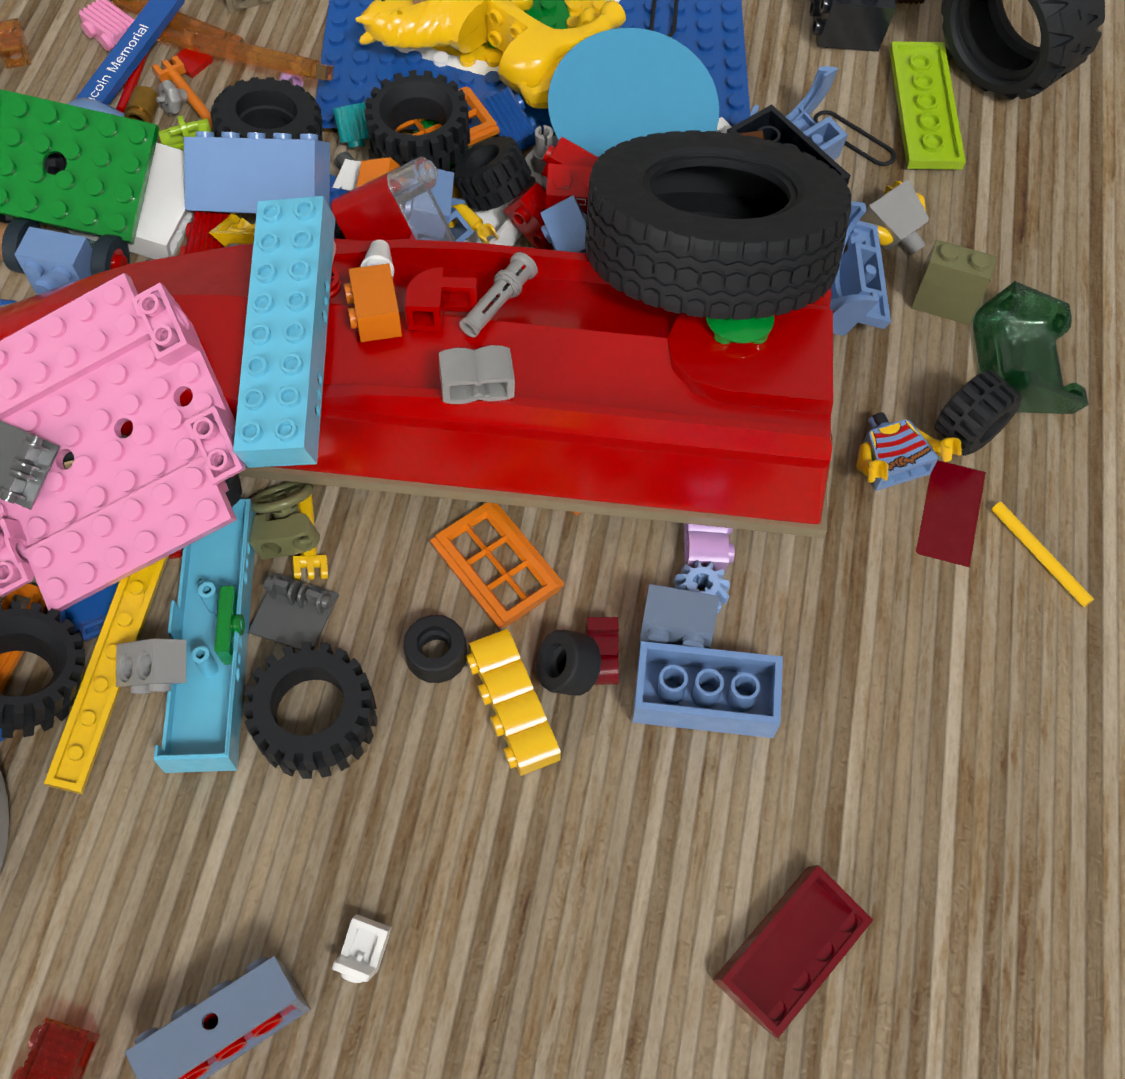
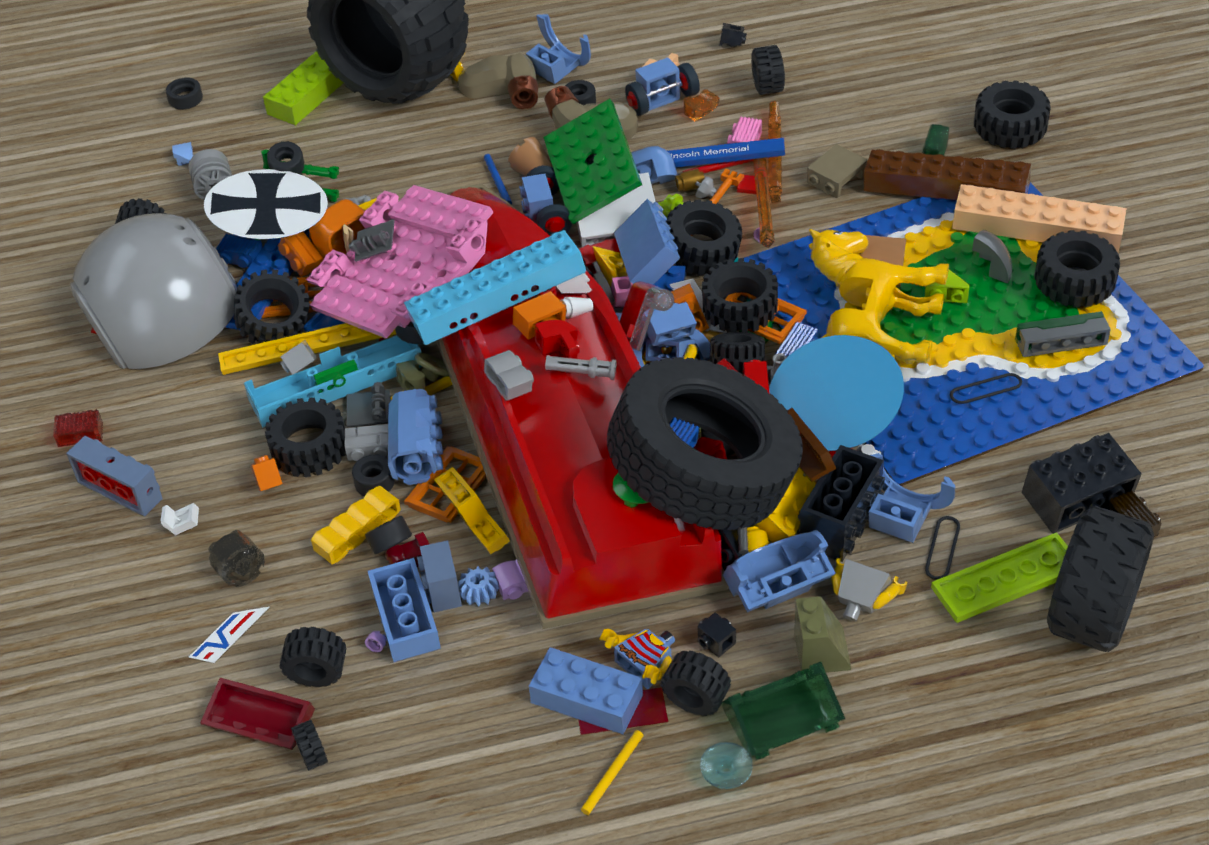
camera: 70 degrees right, 15 degrees down
(343, 791) = (266, 473): none -> orange slope
(369, 631) = (366, 441): none -> light grey brick
(408, 567) = (414, 436): none -> medium blue brick
(502, 886) = (236, 558): none -> clear smoke brick
(579, 546) = (472, 510): none -> yellow bracket
(617, 951) = (226, 635): none -> white sticker
(731, 746) = (374, 646): none -> lavender hinge
(752, 832) = (313, 656): none -> black tyre
(893, 373) = (716, 634): none -> black brick
(894, 888) = (309, 745): none -> black tyre
(923, 531) = (586, 690): none -> medium blue brick
(1089, 429) = (724, 756): none -> clear light blue dish

